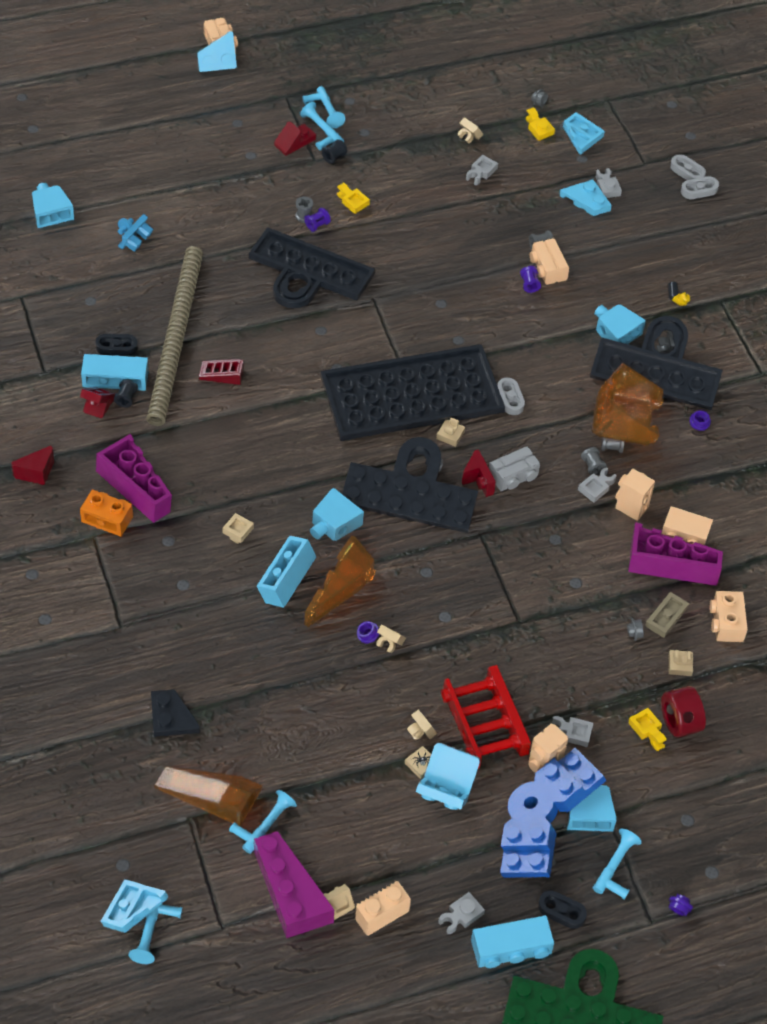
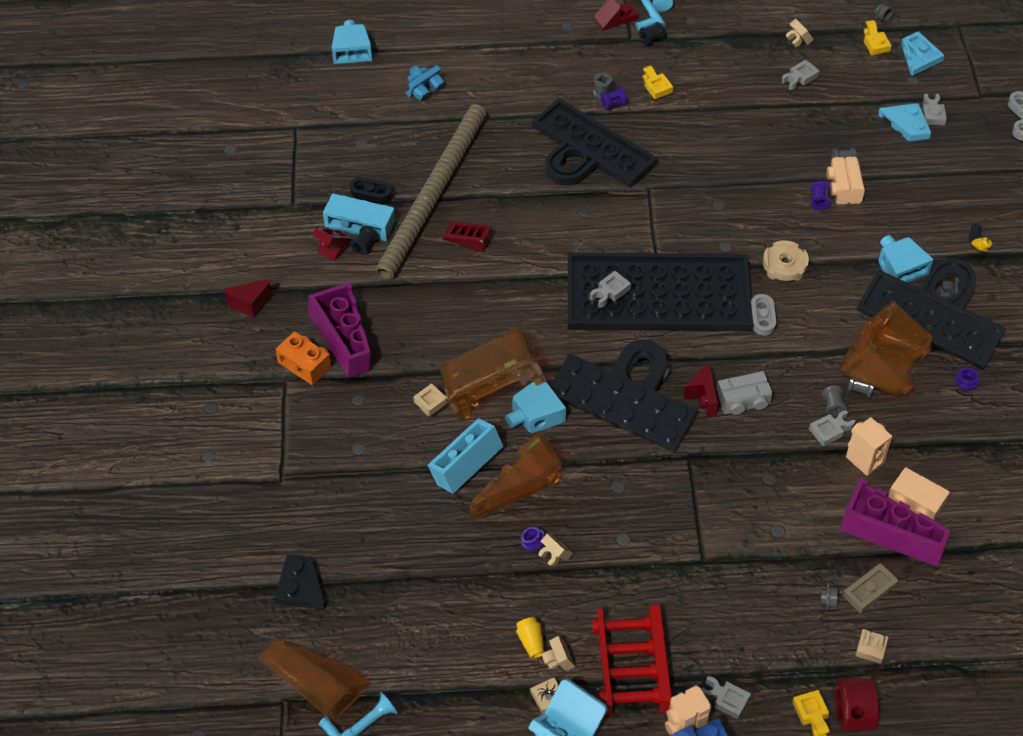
camera: 20 degrees right, 0 degrees up
(285, 491) = (489, 369): none -> clear orange windscreen
(371, 395) = (610, 287): none -> light grey plate
(391, 714) = (531, 636): none -> yellow cone
(451, 432) = (688, 341): tan tile -> none
(512, 353) = (779, 270): none -> tan plate
(729, 616) = (941, 605): light nougat brick -> none

